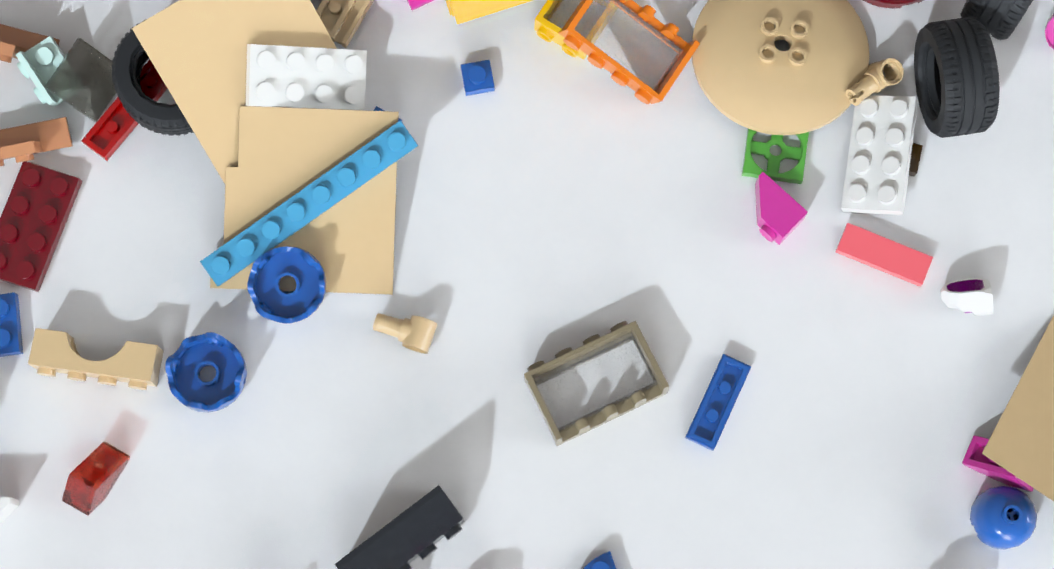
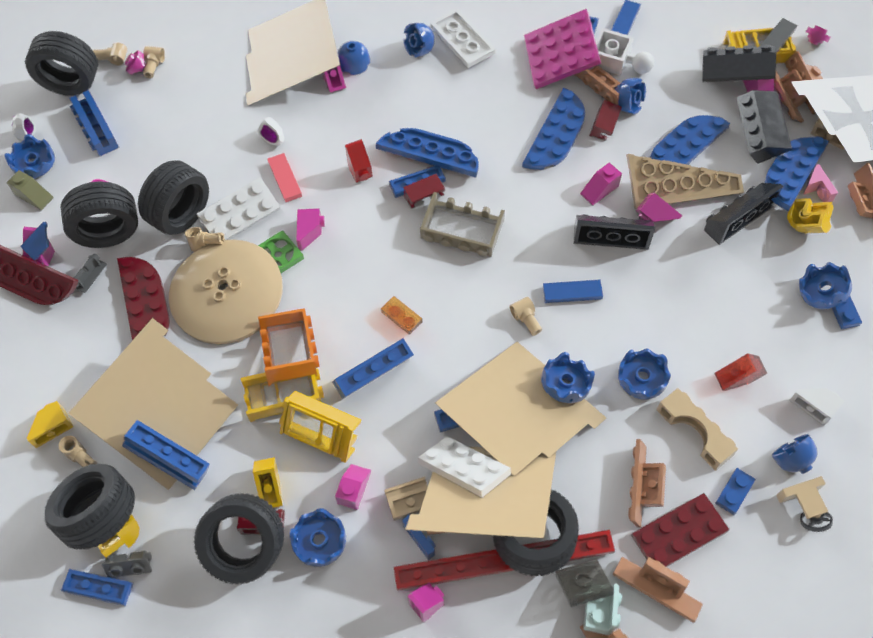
camera: 135 degrees left, 15 degrees down
(103, 244) = (648, 484): none -> nougat bracket
(309, 203) = (521, 403): dark azure plate -> none
(382, 416) = (572, 291): none -> blue tile
(477, 77) = (374, 404): blue plate -> none
(513, 104) = (372, 368): none -> blue brick
(550, 201) = (401, 315): none -> clear orange plate
(688, 386) = (423, 189): none -> dark red hinge
(744, 460) = (431, 149): none -> blue plate
(808, 348) = (358, 161): none -> red slope

